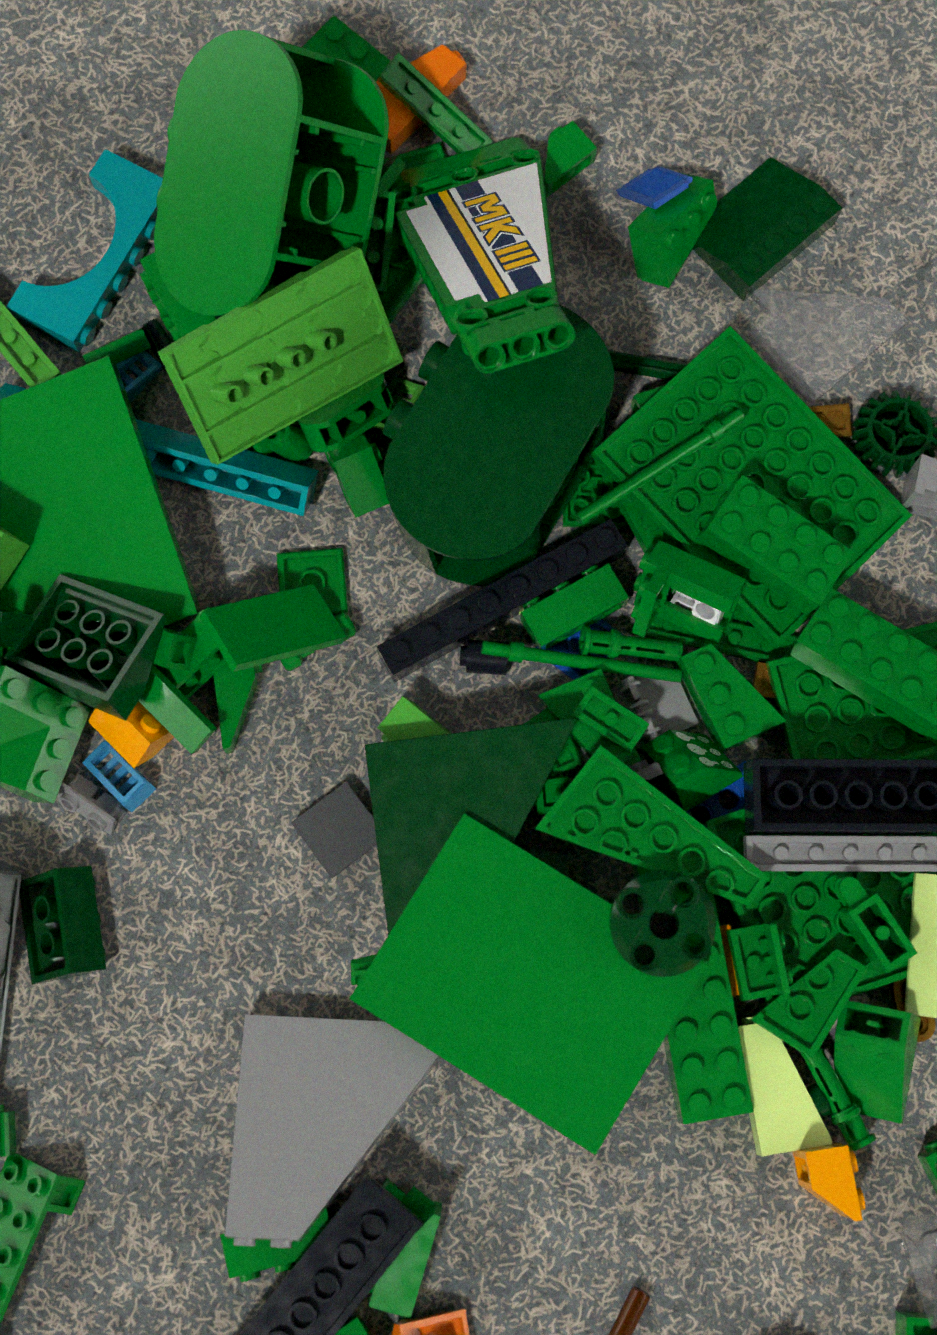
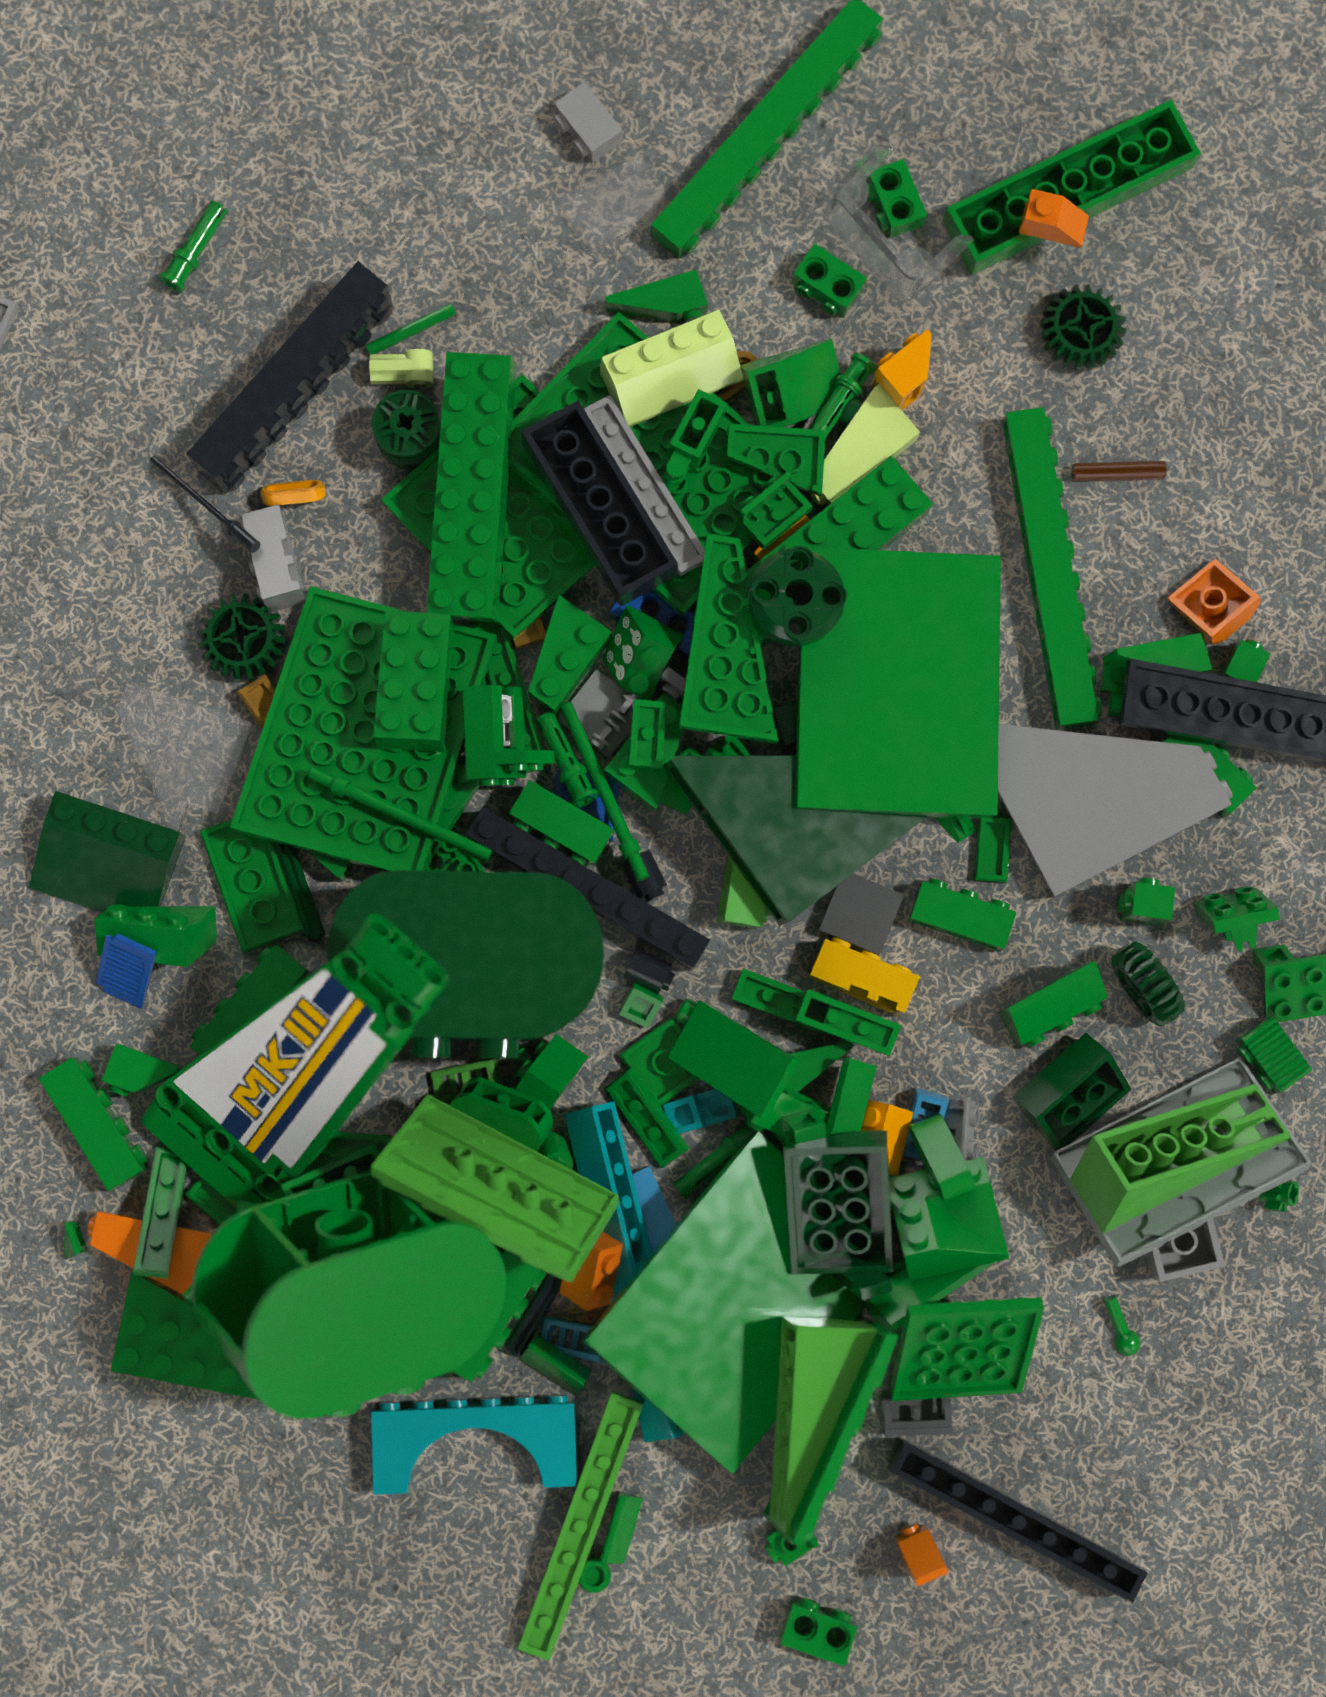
camera: 125 degrees left, 5 degrees up
(74, 760) = (941, 1157): none -> green beam
(111, 1052) = (1148, 983): none -> dark green gear
(123, 1181) = (1237, 914): none -> green plate
(148, 954) = (1055, 1005): none -> green slope
(165, 415) = (597, 1276): none -> orange brick
(186, 1097) = (1146, 902): none -> green brick
(196, 502) = (654, 1208): none -> dark azure tile
(199, 567) = (713, 1163): none -> green pin
(254, 577) = (700, 1110): none -> teal slope
(272, 732) = (816, 1012): none -> green bracket
(273, 540) = (647, 1118): none -> green tile
(280, 796) = (864, 976): none -> yellow wedge
(281, 921) = (962, 914): none -> green brick
(323, 987) = (992, 849): none -> green tile
(373, 589) = (641, 1005): none -> green plate
(398, 612) = (649, 972): none -> black brick
(457, 41) = (73, 1240): none -> green slope
(541, 102) = (93, 1123): none -> green brick
(561, 1208) = (1050, 568): none -> green brick
(573, 277) = (255, 991): none -> green brick
(666, 326) = (252, 886): none -> green tile

